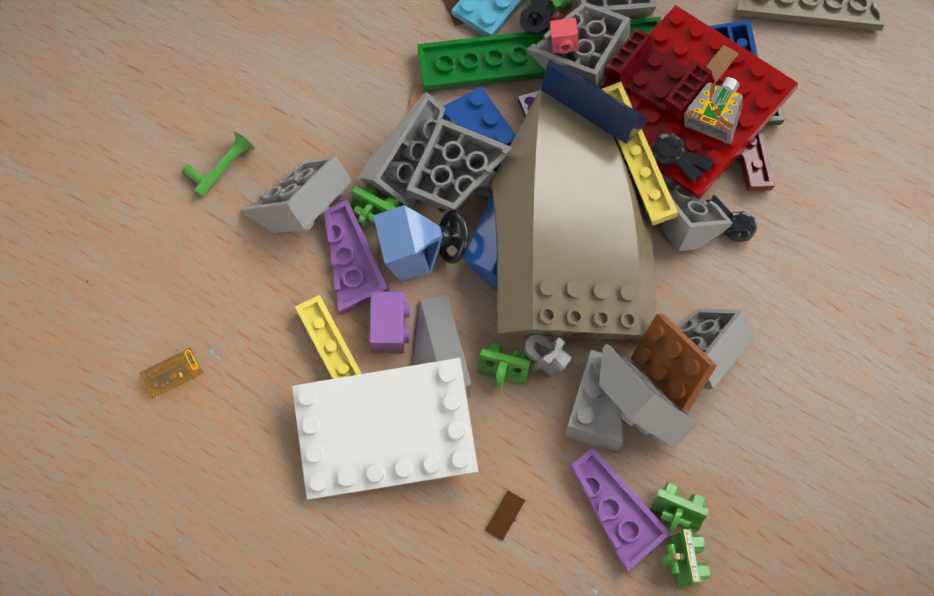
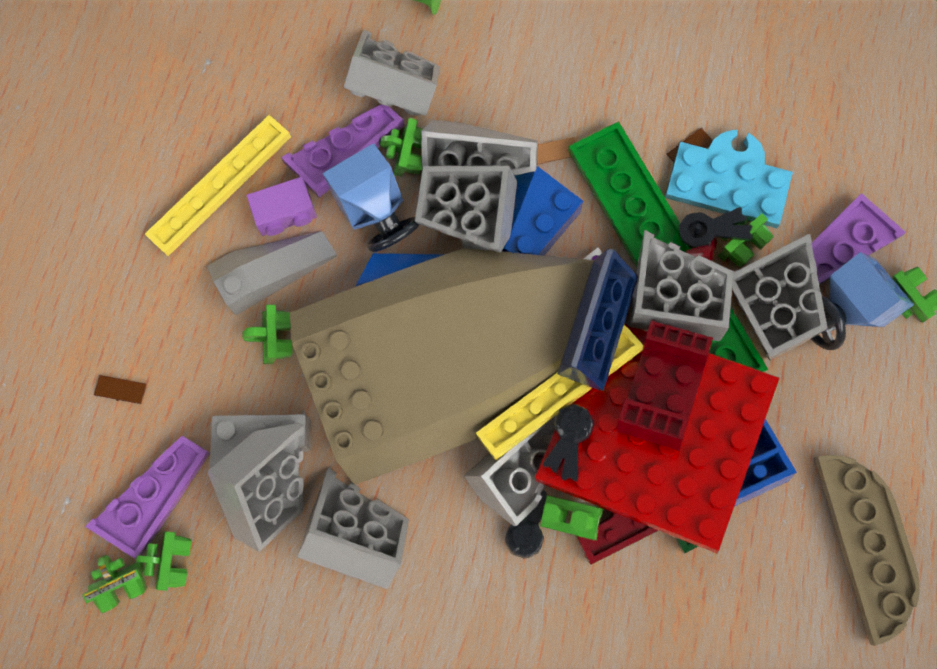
camera: 75 degrees right, 10 degrees up
(171, 373) = (171, 35): clear yellow tile -> none
(384, 429) = (161, 243): white plate -> none
(550, 357) = (286, 377): light grey hips -> none
(564, 35) = (668, 261): coral plate -> none
(673, 362) = (311, 504): dark orange plate -> none
(716, 110) = (640, 463): torso -> none
(721, 61) = (709, 450): medium nougat window -> none
(729, 191) = (583, 521): none -> bright green hips

